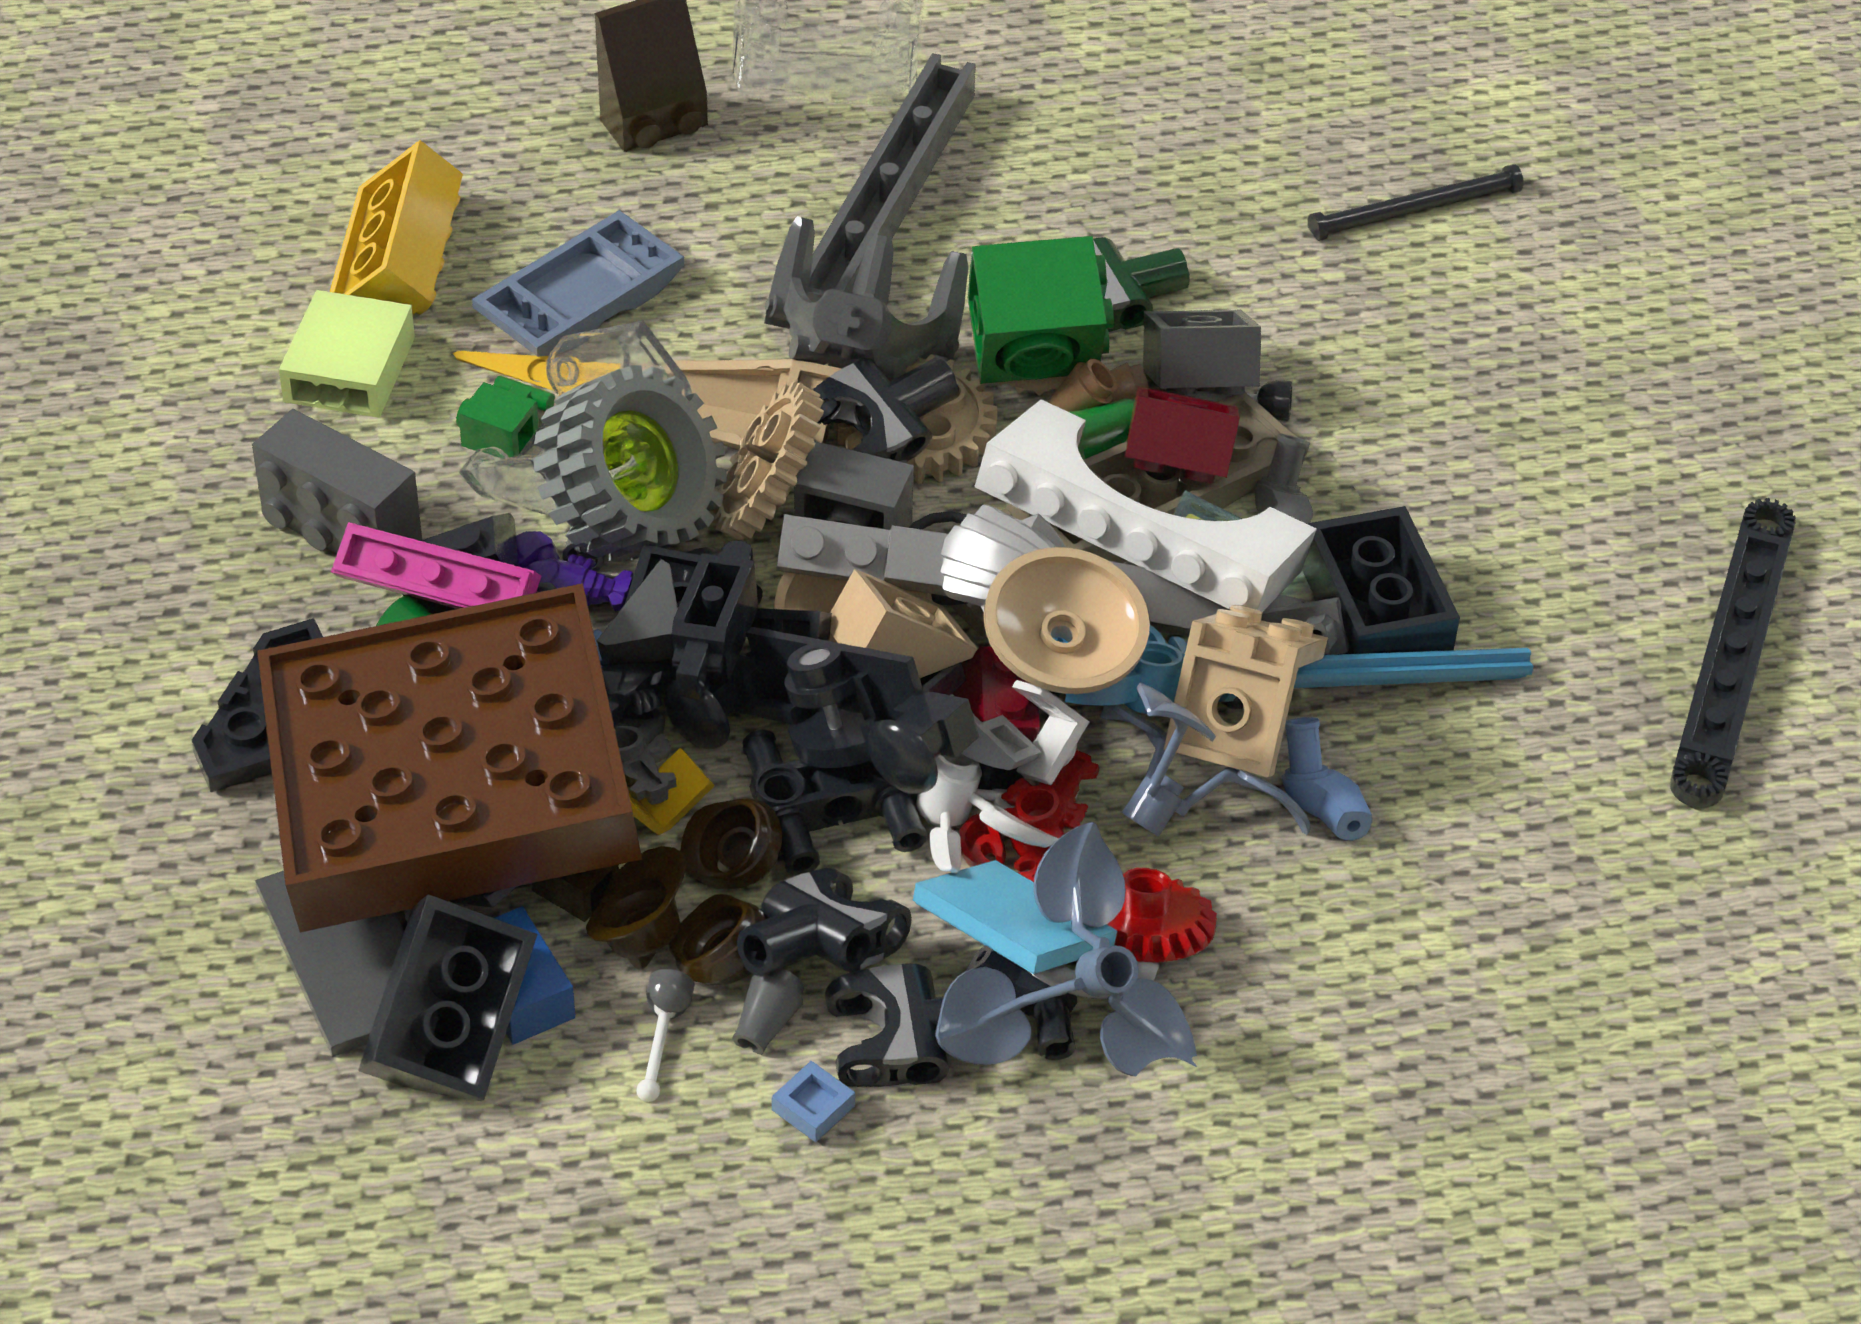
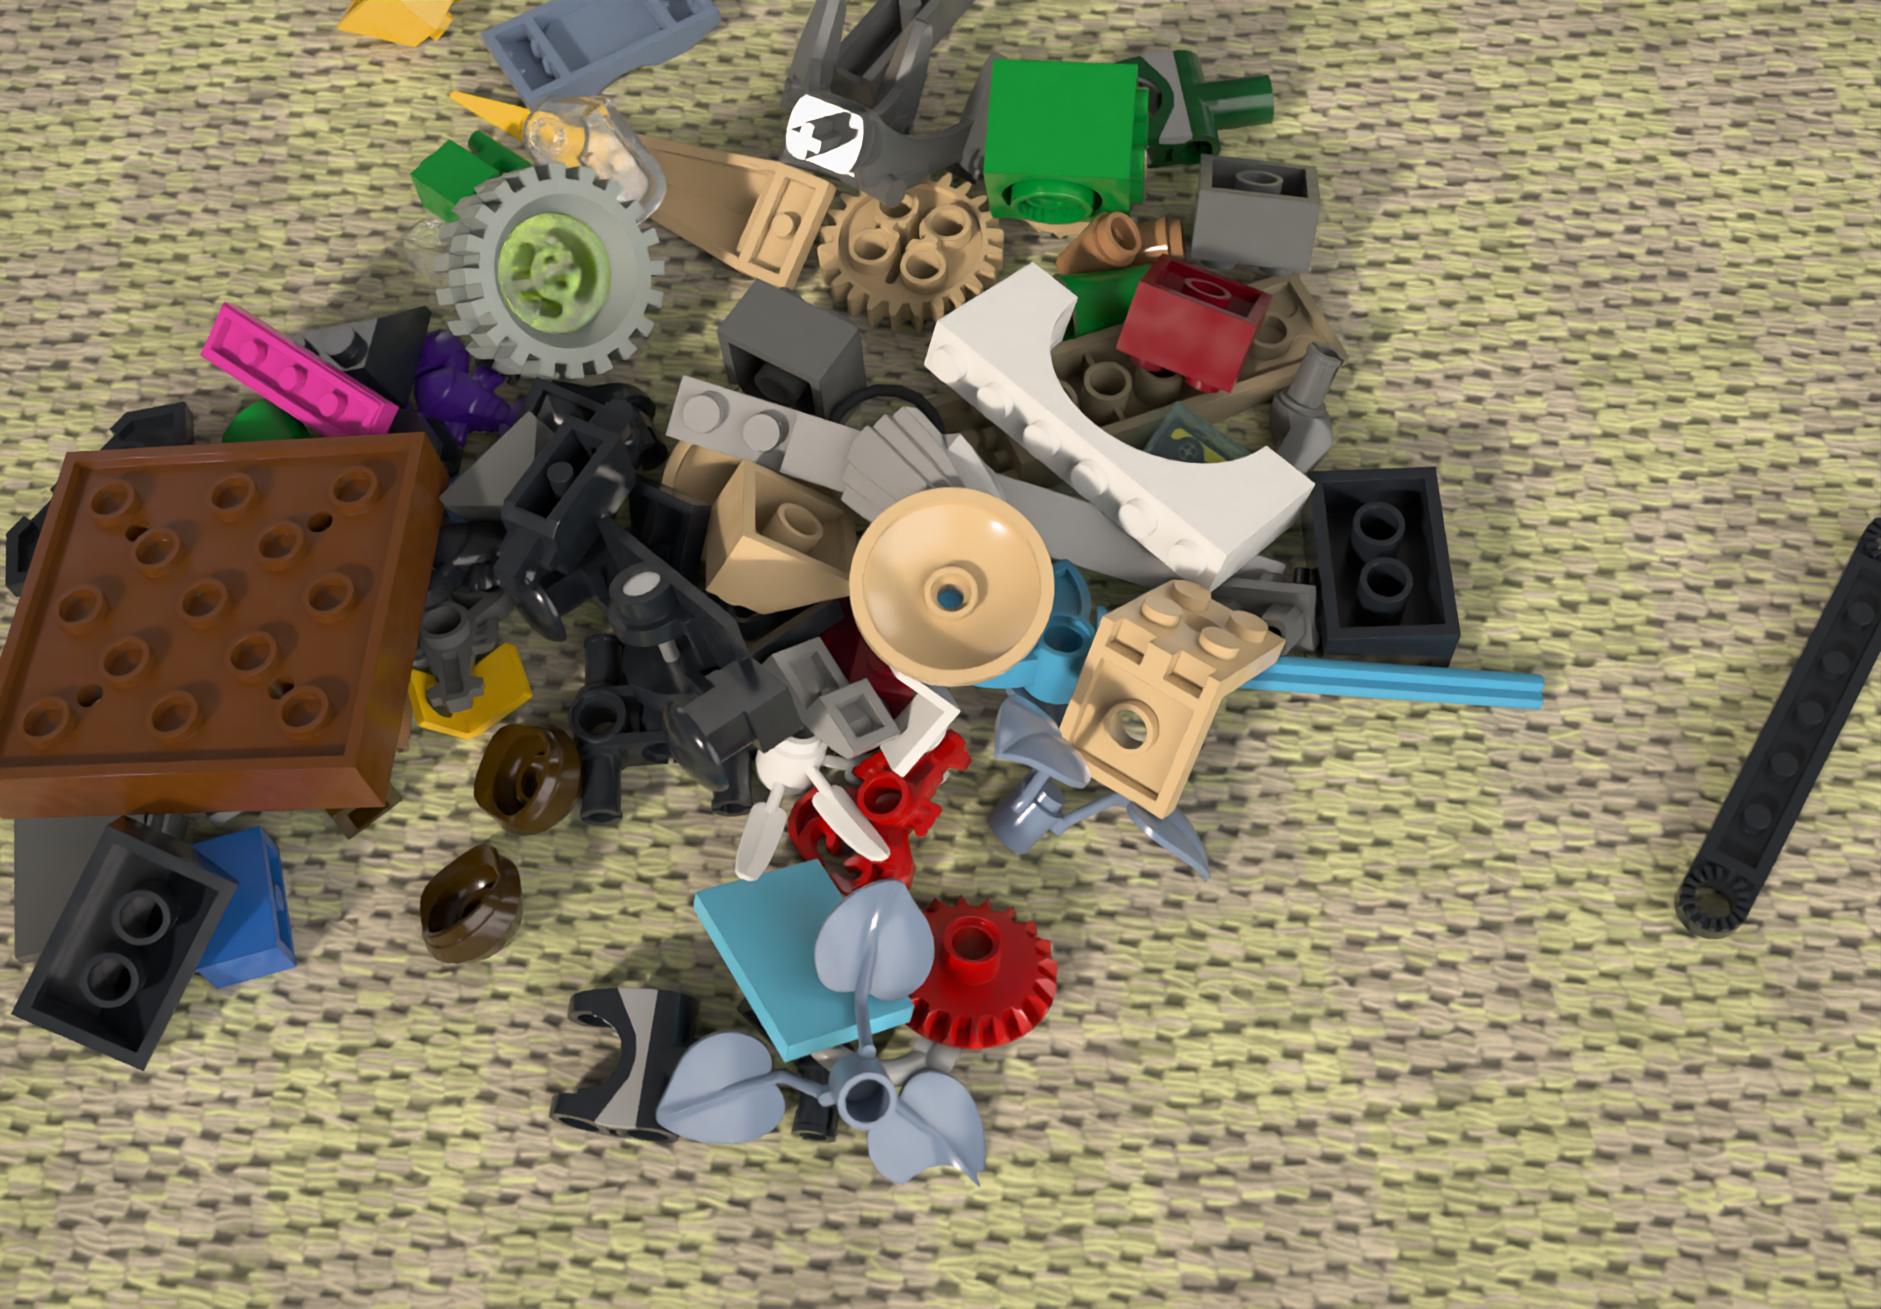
camera: 20 degrees right, 15 degrees up
(323, 480) = (244, 248): dark grey brick -> none
(347, 353) = (333, 80): yellowish green brick -> none
(640, 906) = (396, 847): dark brown piece -> none
(668, 997) = (396, 968): hinge -> none
(768, 1008) = (499, 1008): dark grey cone -> none
(780, 436) = (715, 279): tan gear -> none
(812, 920) = (581, 918): black connector -> none
(813, 1101) = (511, 1148): medium blue plate -> none
(886, 409) = (859, 241): black connector -> none
(1272, 396) = (1326, 283): black hinge -> none
(1320, 789) = (1237, 825): medium blue arm -> none
(1322, 225) = (1687, 33): black bar -> none

